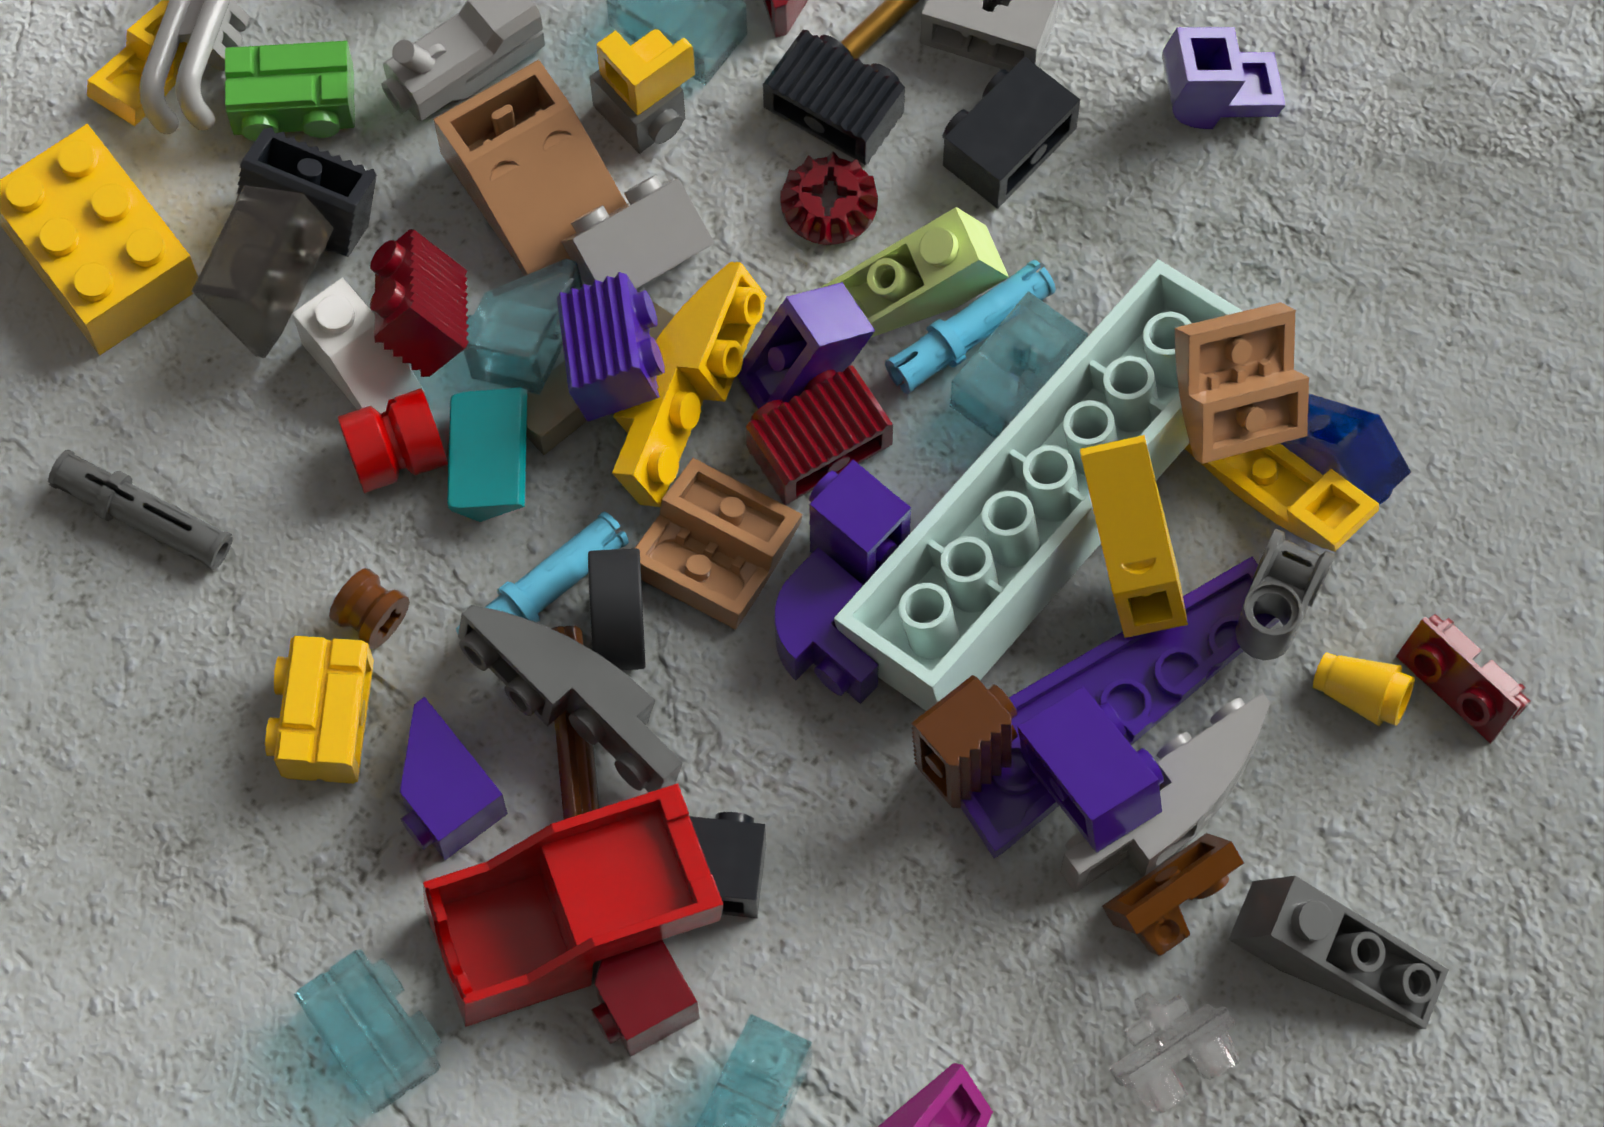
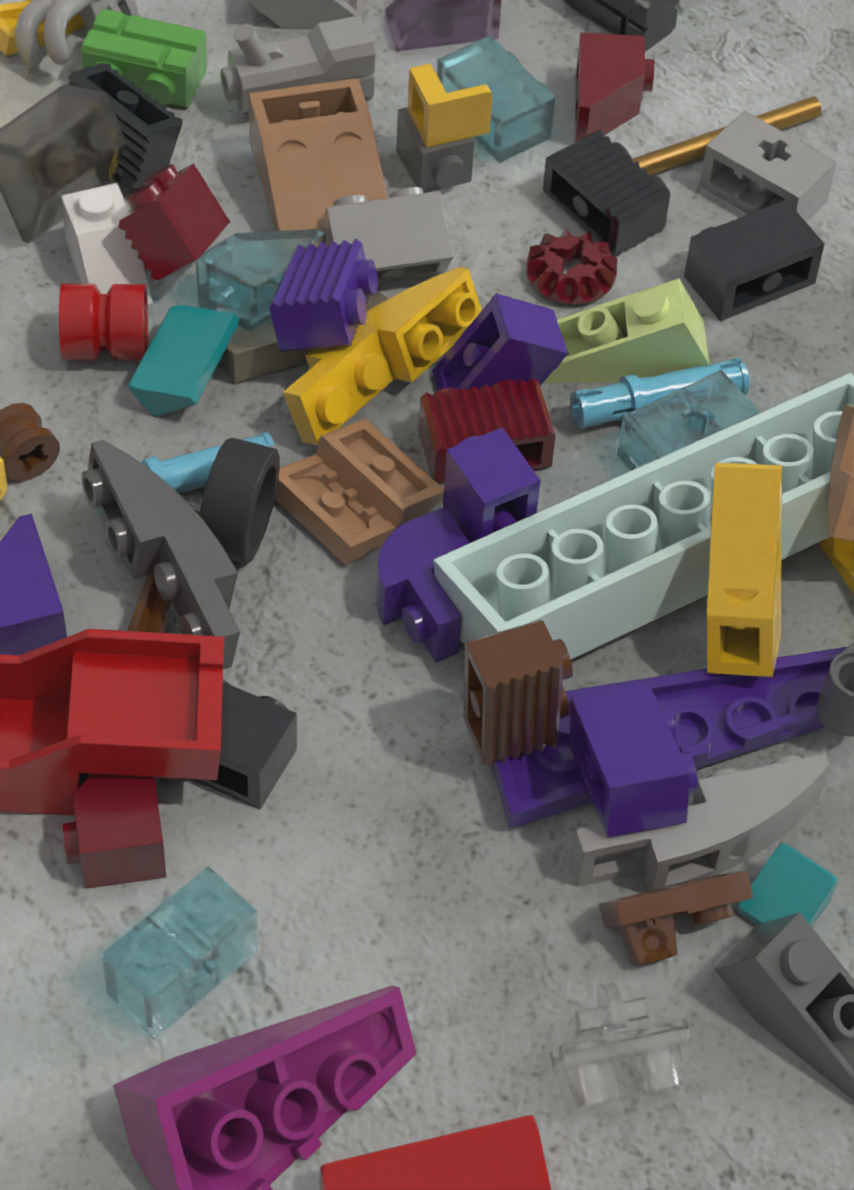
camera: 15 degrees right, 15 degrees down
(1270, 838) = (789, 886): none -> teal slope

